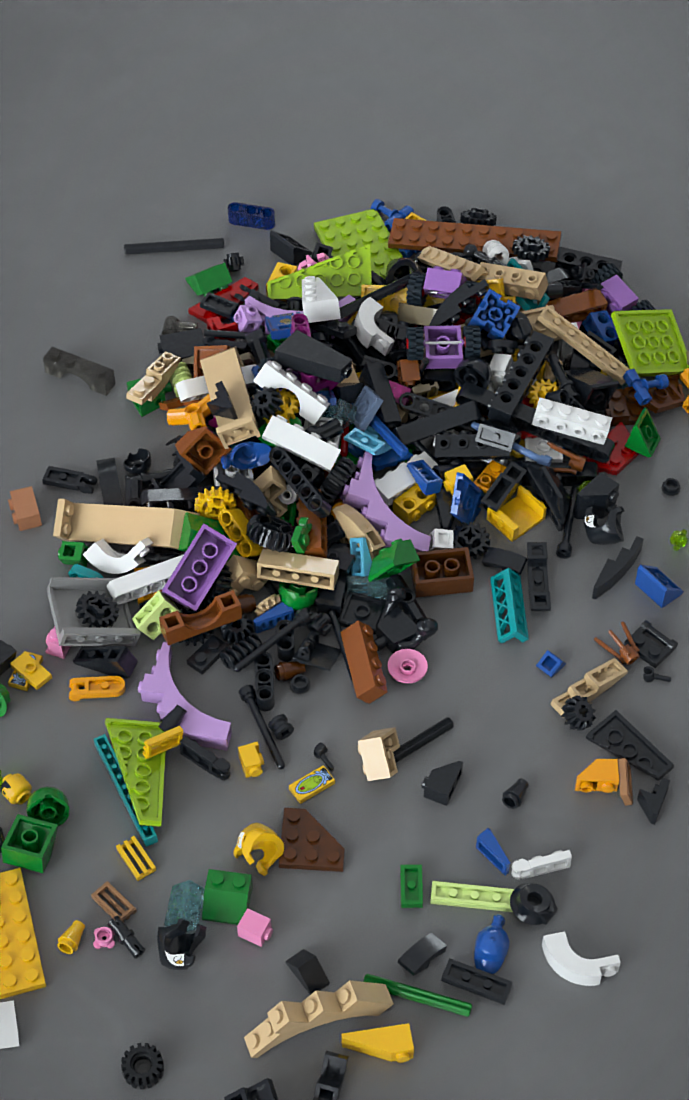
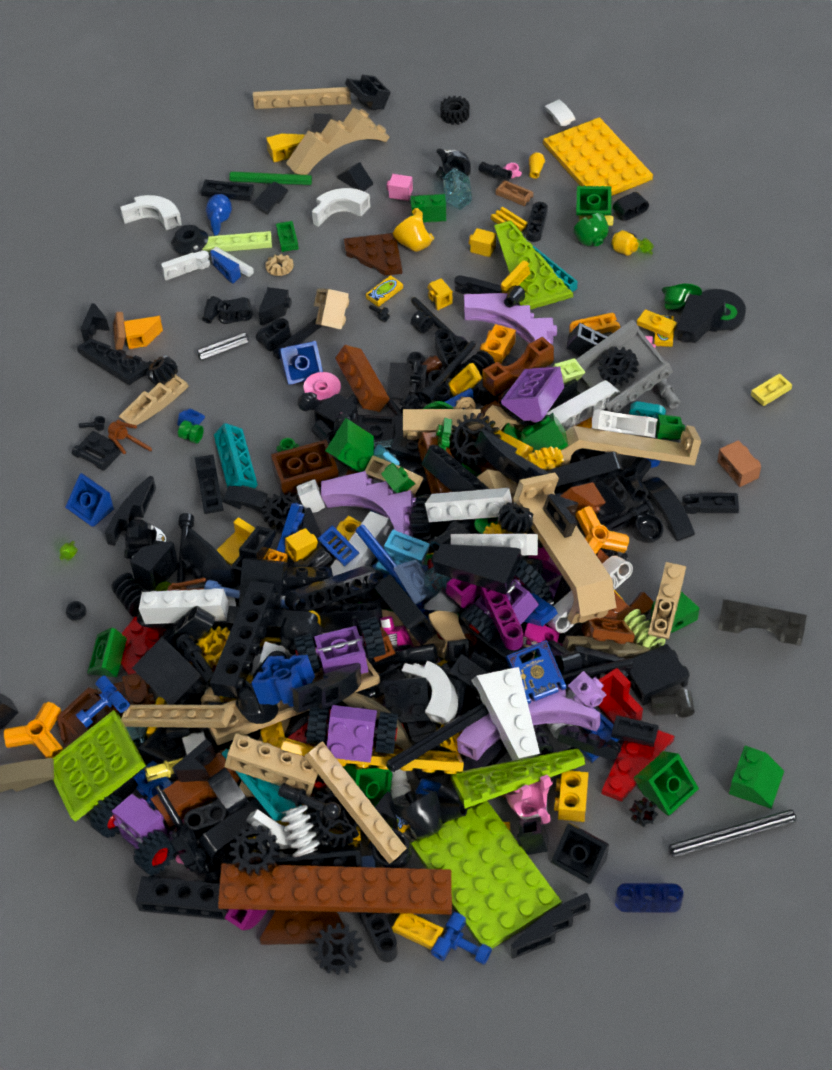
camera: 170 degrees right, 0 degrees up
(103, 858) = (539, 227): none -> black beam
(142, 272) = (756, 778): none -> green slope
(179, 823) = (482, 242): none -> yellow brick
(204, 678) = (499, 342): none -> light orange brick
(256, 627) = (465, 379): none -> yellow tile
(331, 209) = (545, 929): none -> black slope
(333, 927) = (340, 200): none -> white arch
(357, 504) = (397, 478): none -> green brick
(421, 853) = (275, 269): none -> tan gear
(428, 700) = (300, 361): none -> blue slope
(451, 742) = (275, 334): none -> black piece
(454, 605) = (286, 444): none -> green plate
(483, 864) = (244, 268): none -> white axle
(487, 784) = (236, 309): none -> black piece
(507, 745) = (222, 346): none -> axle
(552, 640) = (191, 432): none -> green wheel
(571, 303) = (192, 767): none -> black slope
(594, 323) = (161, 770): none -> light yellow axle
(626, 490) = (128, 593): none -> black piece

